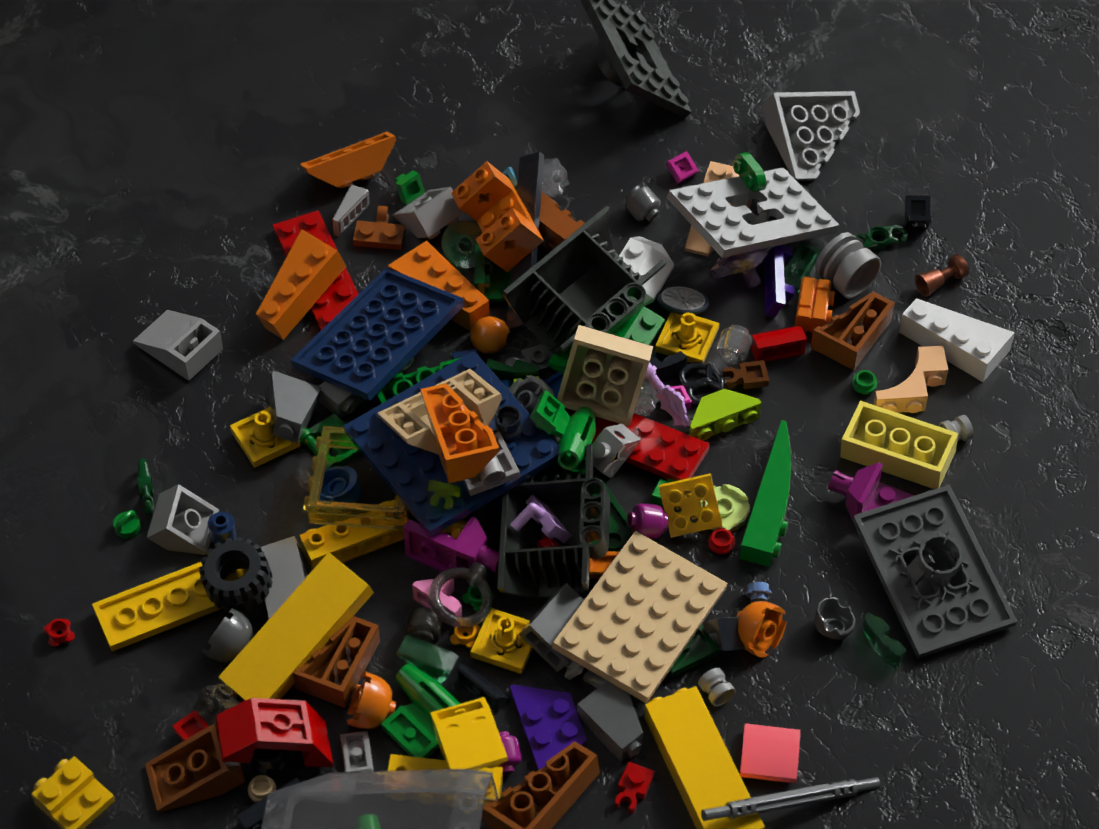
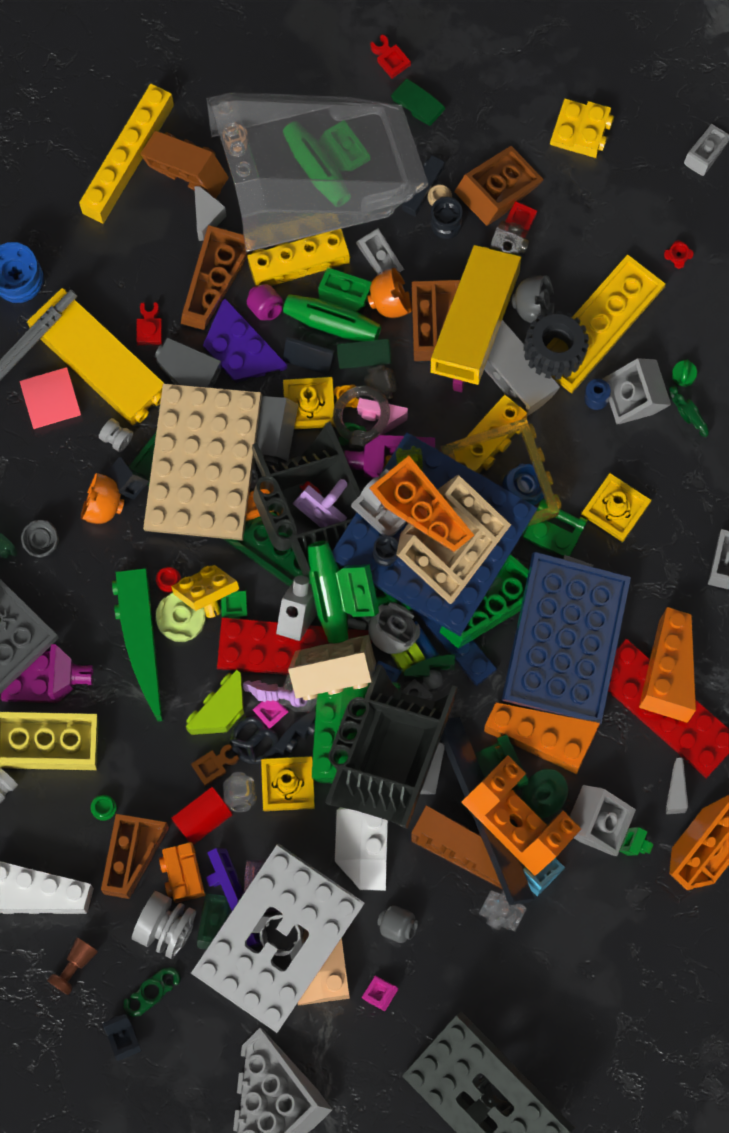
camera: 160 degrees right, 20 degrees up
(273, 725) = (445, 223): red slope -> none
(291, 405) = (603, 532): slope -> none
(379, 233) = (635, 779): dark orange plate -> none
(468, 736) = (285, 271): yellow slope -> none
(489, 335) = (472, 703): orange hair -> none
(647, 520) = (236, 557): magenta head -> none
(682, 300) = (309, 823): light grey wheel -> none
(750, 172) = (308, 986): green plate -> none
(758, 591) = (117, 542): medium blue plate -> none
(912, 393) = (54, 807): light nougat arch -> none

